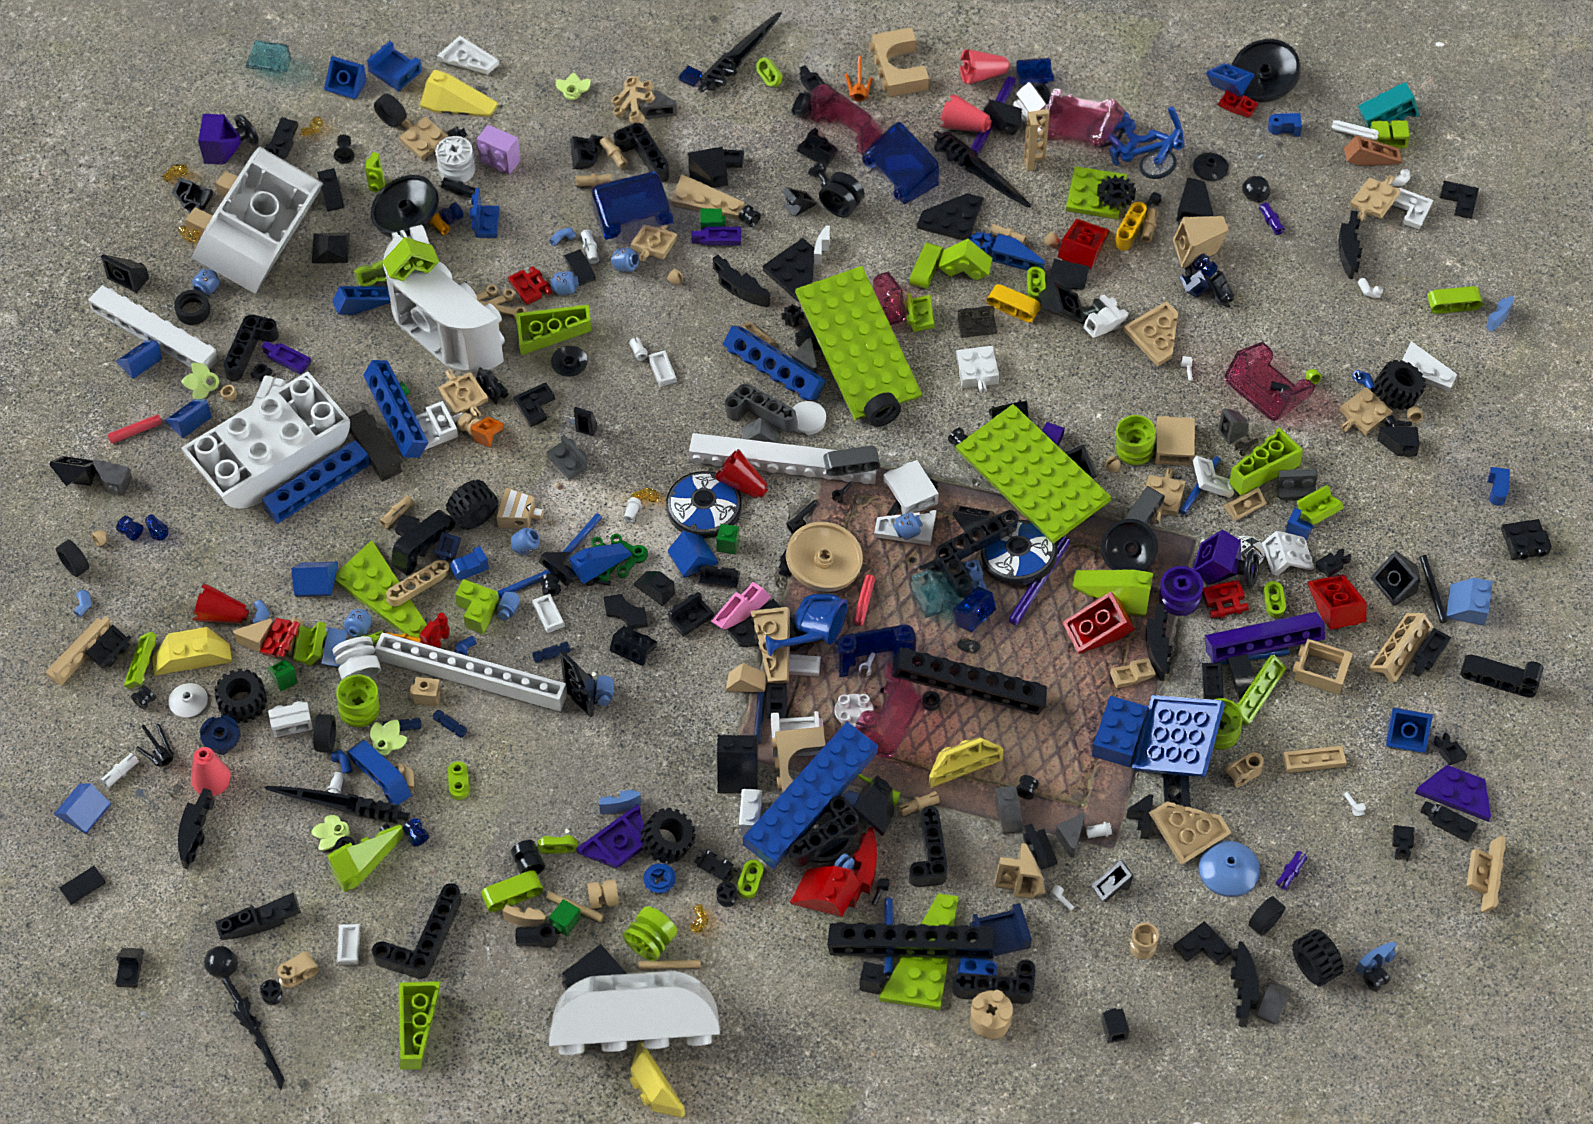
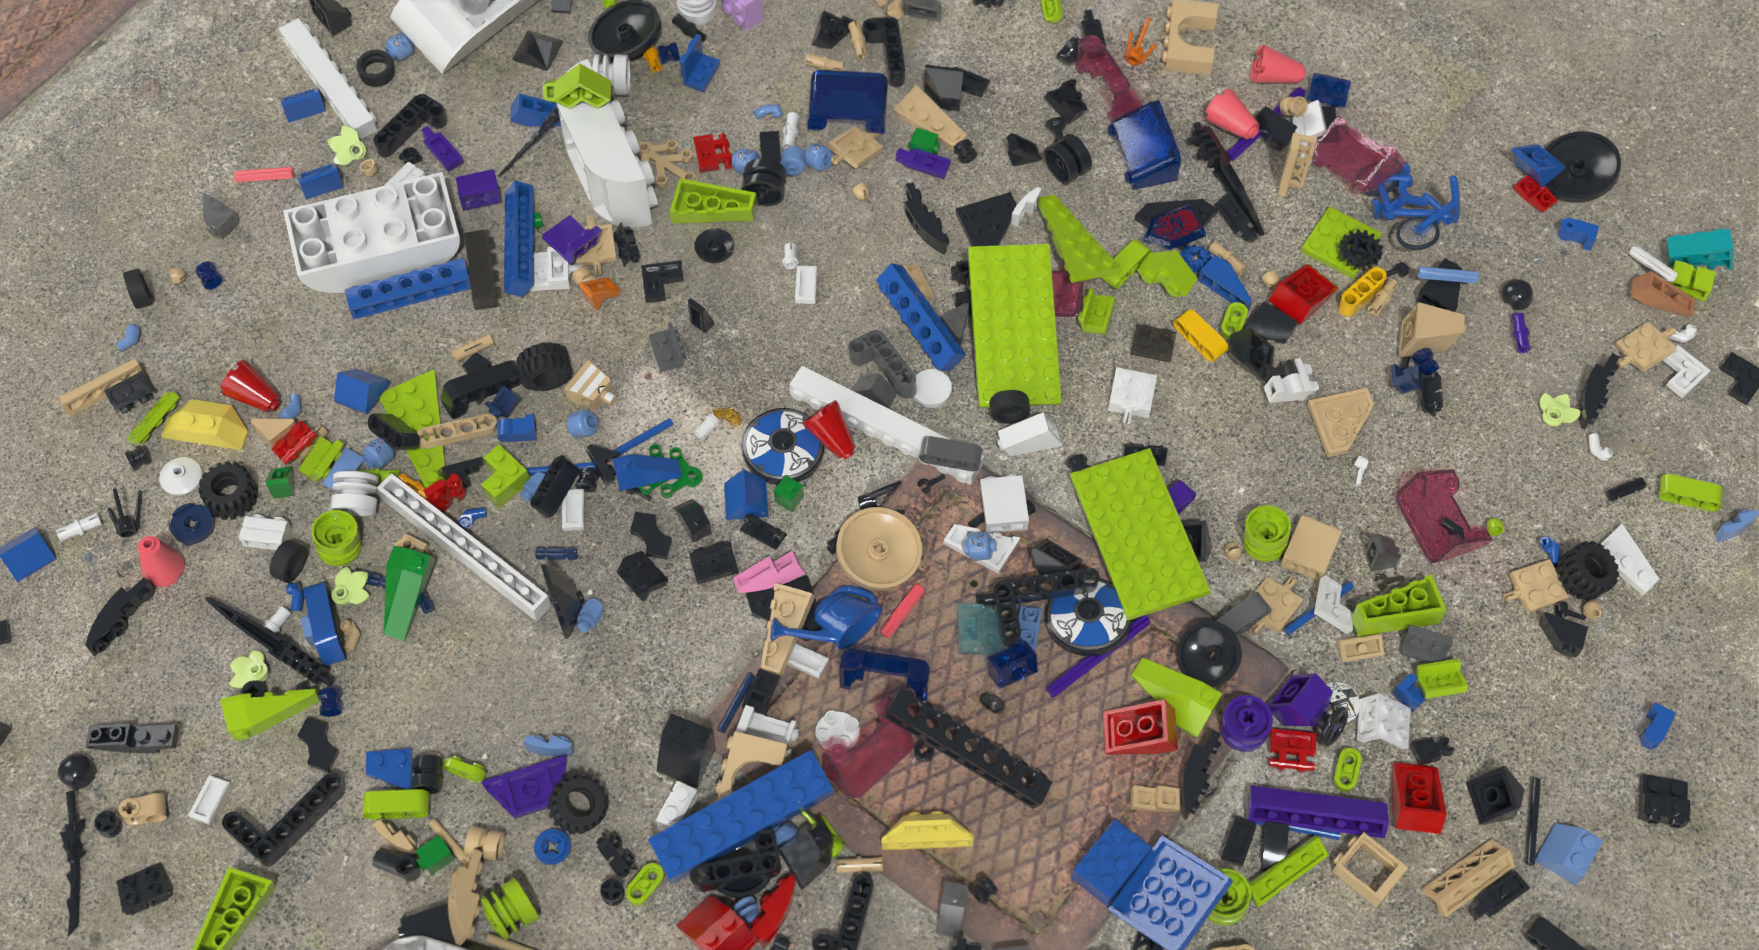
camera: 20 degrees right, 5 degrees up
(74, 470) = (183, 196): black slope -> none
(157, 528) = (234, 284): clear blue cone -> none
(327, 1030) = (142, 888): none -> black hinge
(338, 379) = (478, 189): none -> dark purple bracket
(364, 600) = (393, 431): none -> black beam
(369, 783) = (307, 630): none -> medium blue tile
(377, 298) = (551, 119): none -> black sword
(426, 875) = (315, 736): none -> black tile
(436, 719) = (405, 583): none -> green wedge
(444, 393) = (571, 239): none -> dark purple bracket
(444, 606) = (470, 467): none -> black slope
(458, 779) = (400, 658): lime plate -> none
(492, 865) = (391, 766): none -> blue wing
(526, 598) = (554, 486): none -> black beam
(590, 289) = (766, 179): none -> black wheel
(605, 270) = (793, 160): none -> medium blue head
(607, 938) = (462, 900): none -> tan slope
(701, 920) = (574, 912): clear yellow arm -> none
(746, 679) = (740, 657): tan slope -> none
(867, 665) = (874, 685): white hand -> none
(878, 261) = (1079, 249): none -> lime wing
(908, 428) = (1029, 436): none -> white slope
(955, 223) = (1175, 228): none -> clear blue tile
(1002, 198) = (1236, 217): none -> black hinge
(1011, 93) = (1293, 106): none -> tan wheel
(1195, 189) = (1448, 274): none -> medium blue axle
(1210, 166) = (1475, 259): black dish -> none
(1325, 270) = (1559, 408): none -> yellowish green plate
(1403, 314) = (1626, 489): none -> black axle

